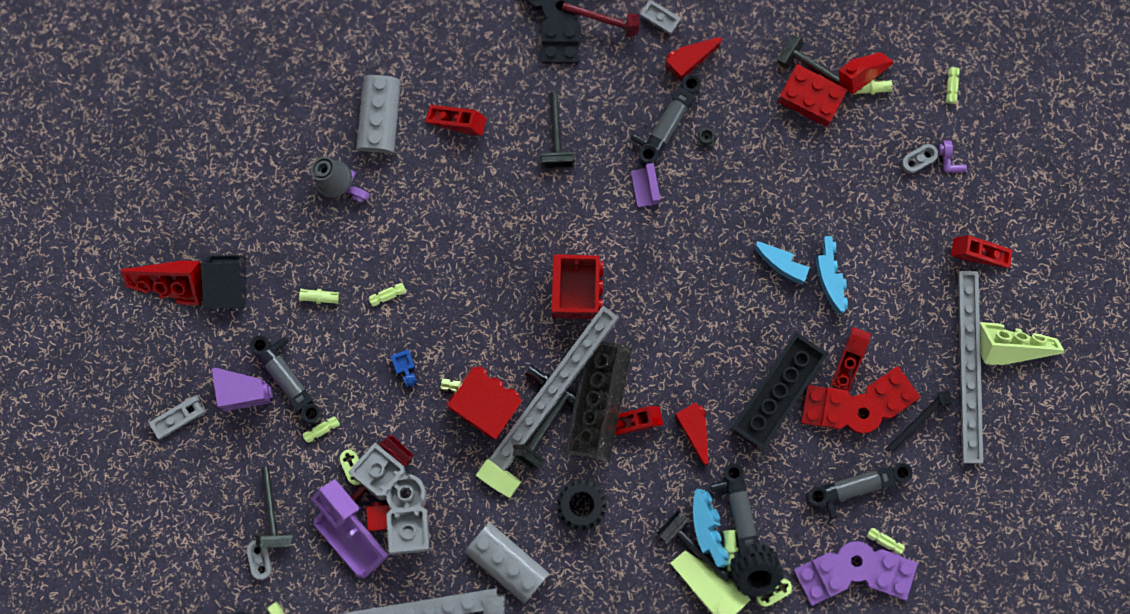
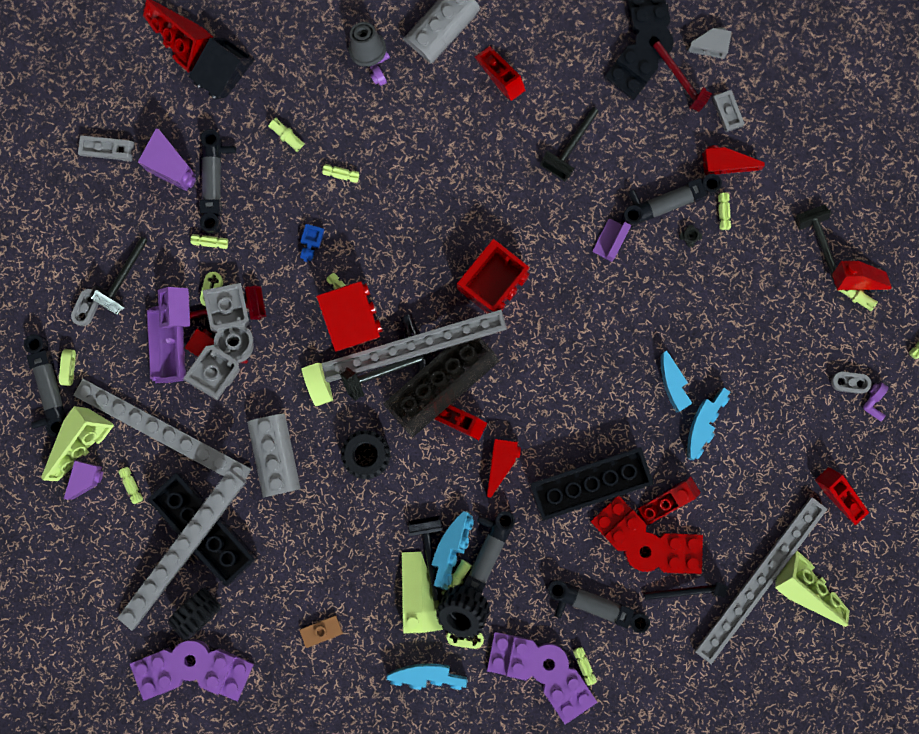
camera: 30 degrees right, 5 degrees up
(717, 98) = (724, 211): none -> yellowish green axle
(812, 95) = (802, 266): red brick -> none

